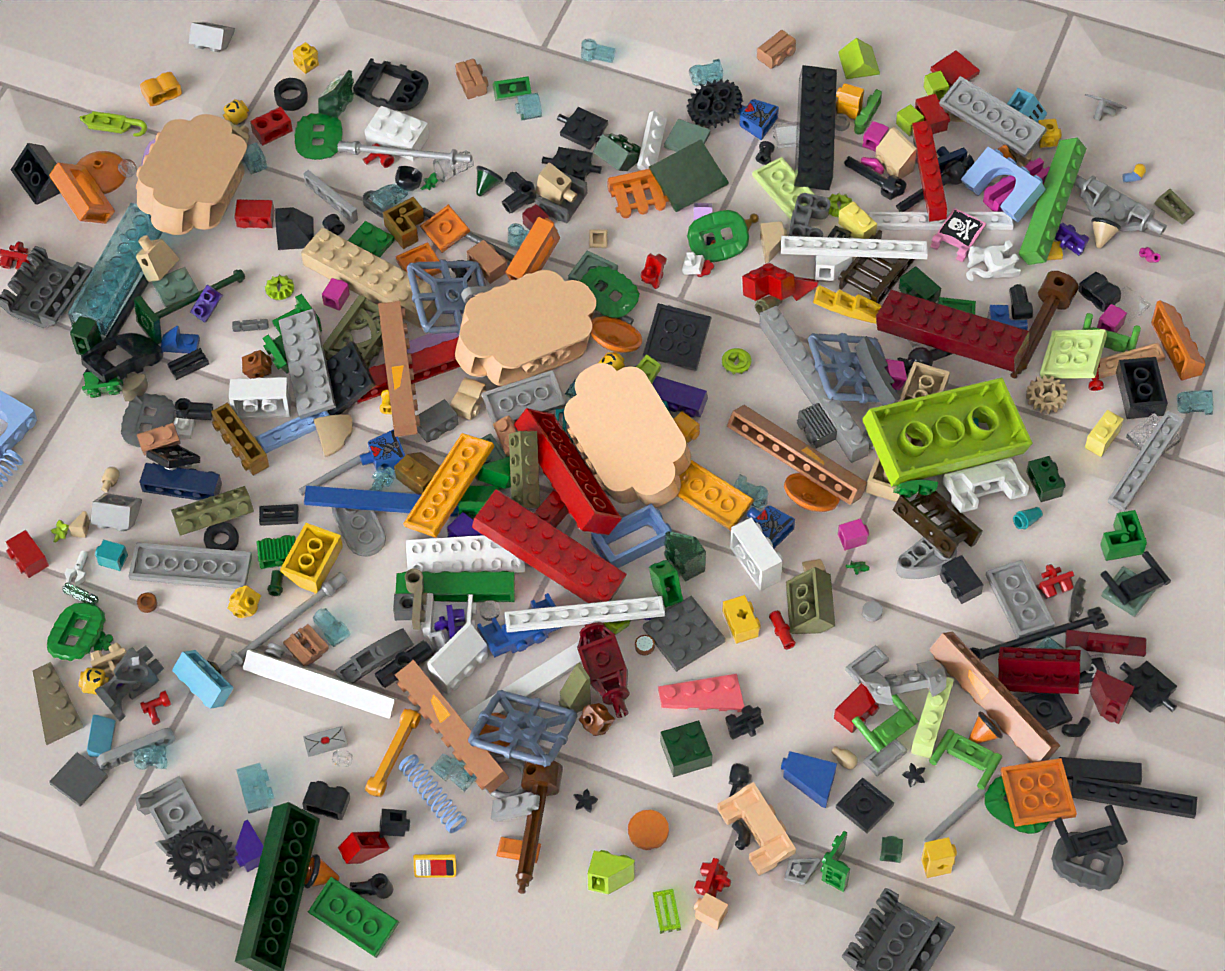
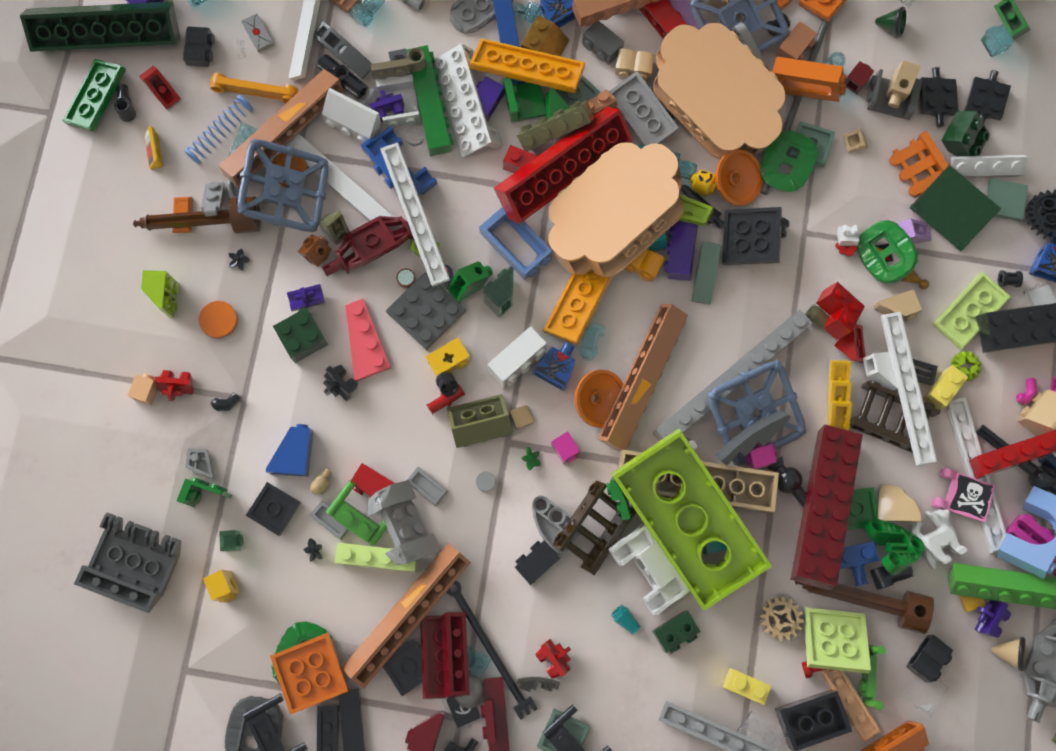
camera: 75 degrees right, 20 degrees up
(318, 872) = (128, 58): orange hat -> none
(393, 823) = (186, 99): black brick -> none
(523, 192) = (887, 59): black piece -> none
(548, 549) = (474, 167): red brick -> none
(646, 737) = (305, 297): none -> dark purple hips
(653, 270) = (825, 197): red hips -> none
(669, 927) = (159, 352): clear neon green tile -> none
(696, 377) = (706, 272): none -> sand green slope
(731, 355) = (749, 295): lime gear -> none
(738, 775) = (284, 388): black piece -> none
(763, 825) = (233, 418): light nougat bracket -> none
(768, 620) = (451, 384): none -> black wheel
(802, 215) = (936, 329): dark grey beam -> none
(816, 425) = (683, 390): dark grey brick -> none
(889, 185) = (1003, 413): black piece -> none
(919, 285) = (880, 465): dark green brick -> none
(955, 815) = (279, 596): light grey bar -> none
(960, 282) = (897, 506): none -> tan brick
(968, 752) = (346, 599): bright green plate -> none
(984, 730) = (372, 611): orange hat -> none
(995, 286) = (902, 546): none -> green connector
(1020, 599) = (528, 625): light grey plate -> none
(1076, 730) = (391, 702): black arm -> none
(1112, 319) = (895, 676): dark pink brick -> none
(1127, 538) = (619, 729): green brick -> none
(1149, 254) = (996, 708): dark pink arm -> none

